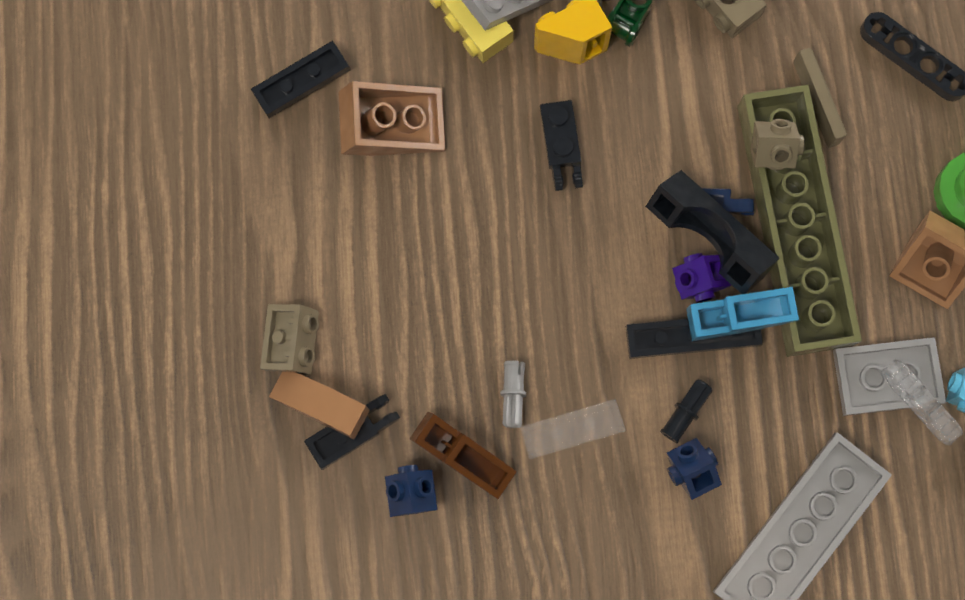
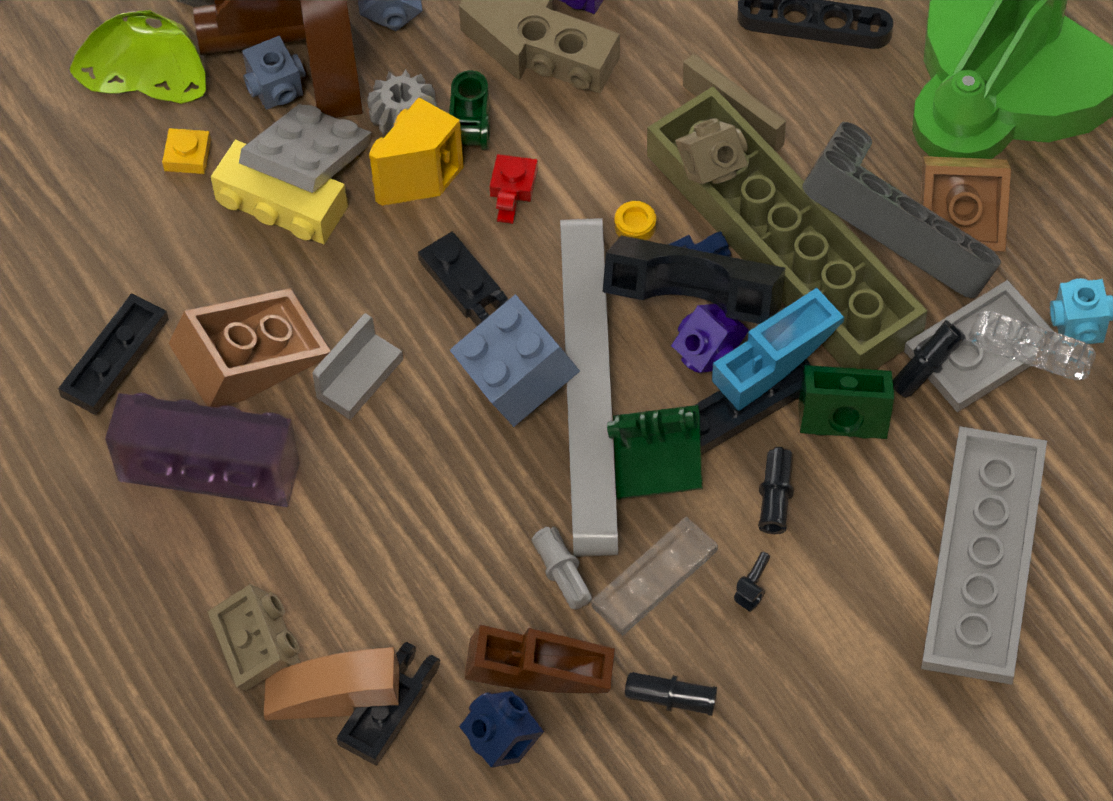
camera: 30 degrees left, 20 degrees down
(318, 187) = (203, 449): none -> clear purple brick
(453, 173) = (355, 368): none -> light grey panel
(537, 522) = (671, 693): none -> black axle
(557, 228) = (514, 360): none -> sand blue brick
(601, 267) = (589, 390): none -> light grey beam
(619, 345) = (657, 452): none -> dark green hinge
(627, 476) = (748, 592): none -> black hand
(632, 81) = (512, 181): none -> red plate
(693, 468) = (819, 539): dark blue brick -> none
(701, 154) = (635, 220): none -> yellow tile
(768, 375) = (845, 402): none -> dark green brick
(844, 373) = (928, 358): none -> black axle
(876, 249) = (894, 217): none -> dark grey beam

